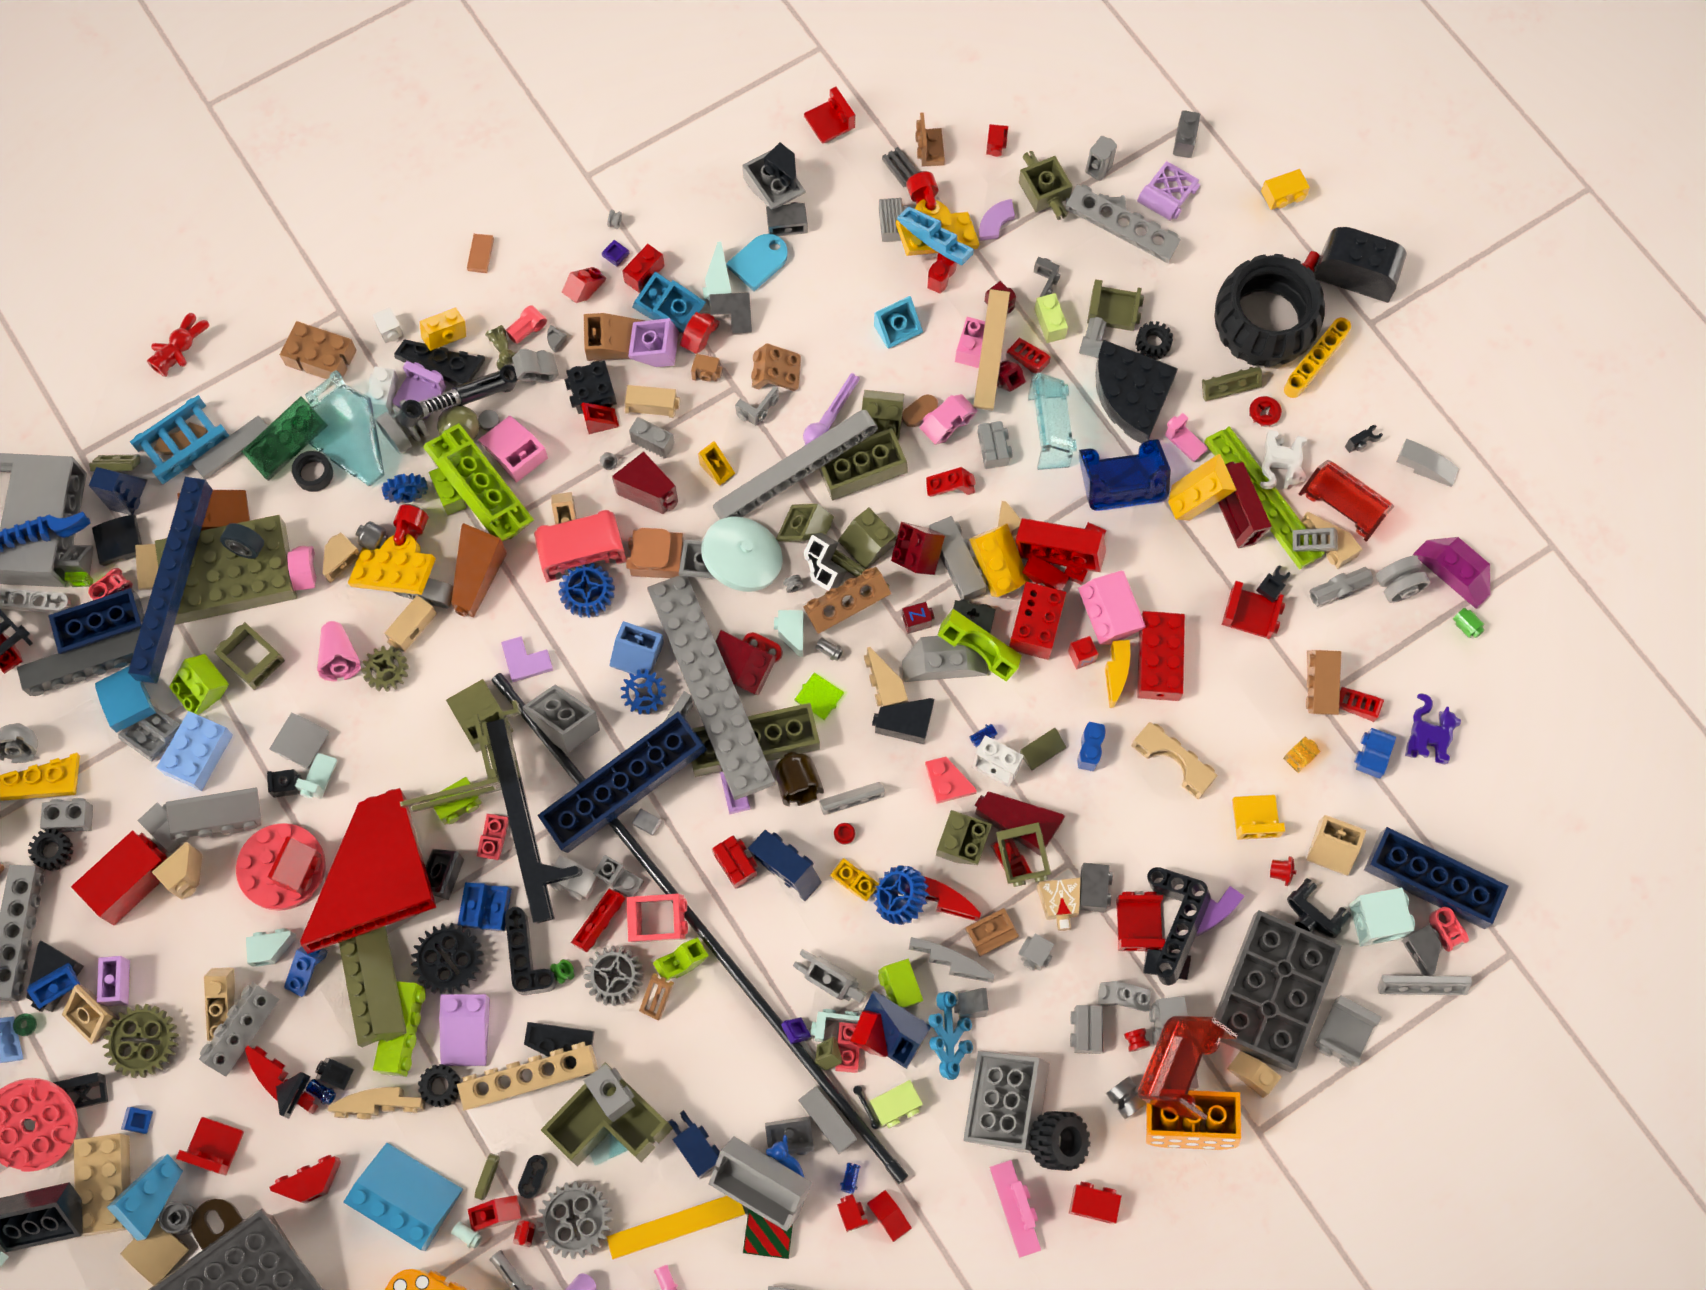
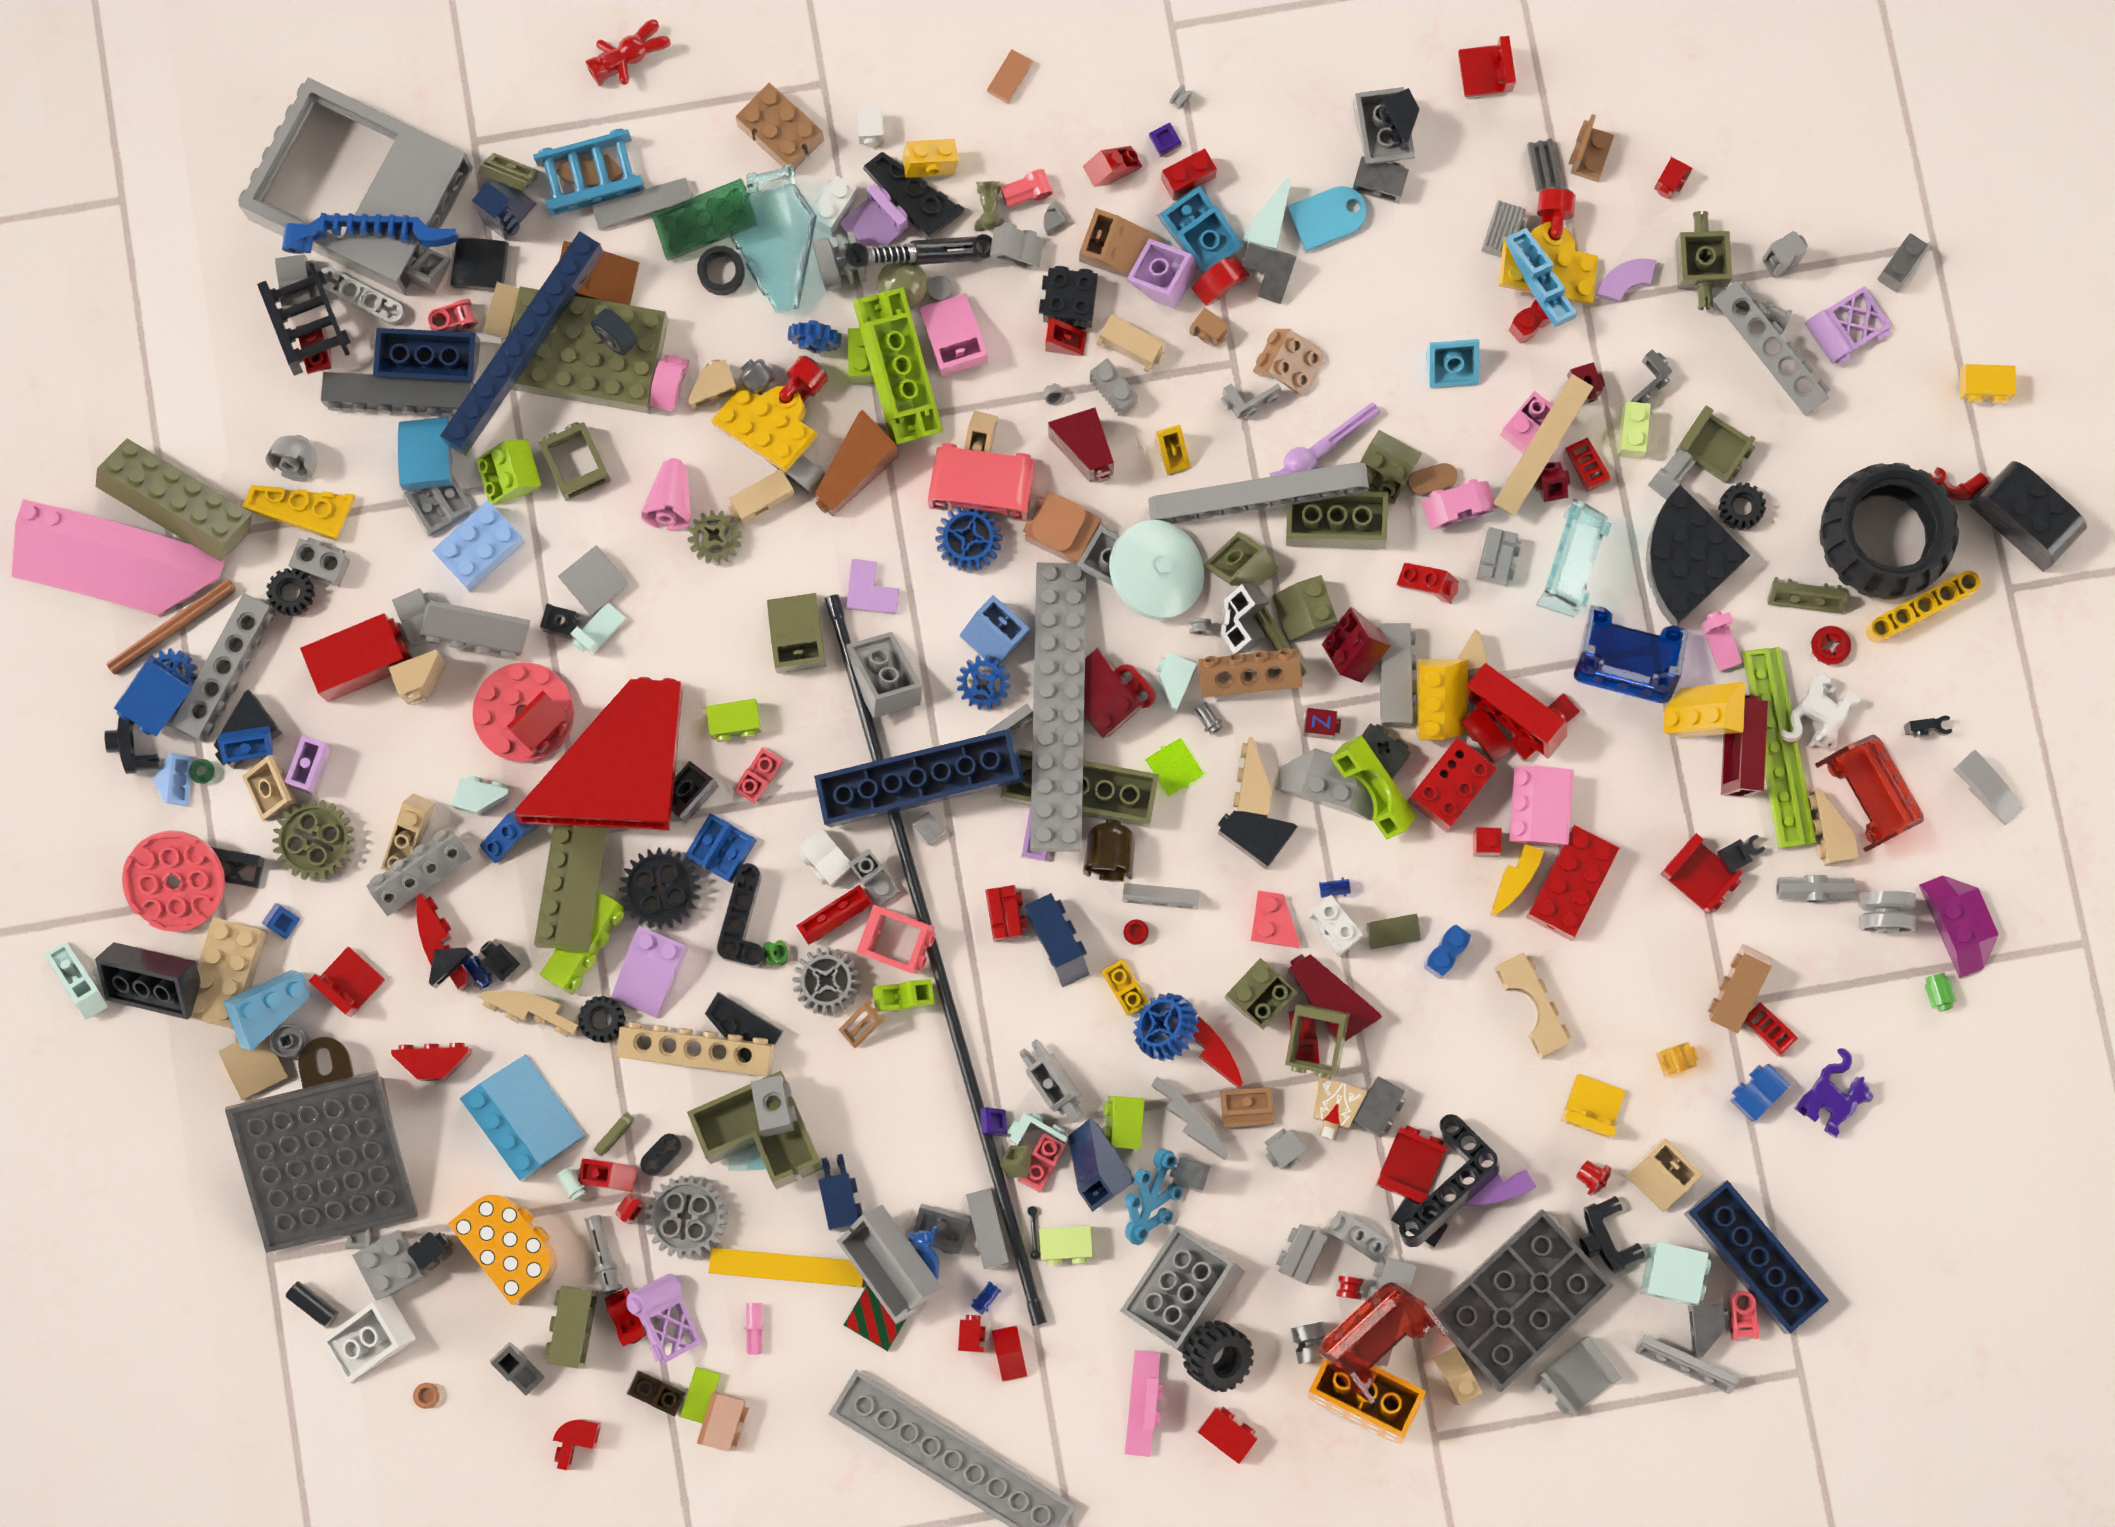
camera: 25 degrees right, 10 degrees up
(78, 579) = (422, 294): clear neon green tile -> none
(506, 776) = (798, 722): black piece -> none
(870, 1034) = (1069, 1160): red slope -> none
(1333, 546) = (1829, 832): light grey slope -> none

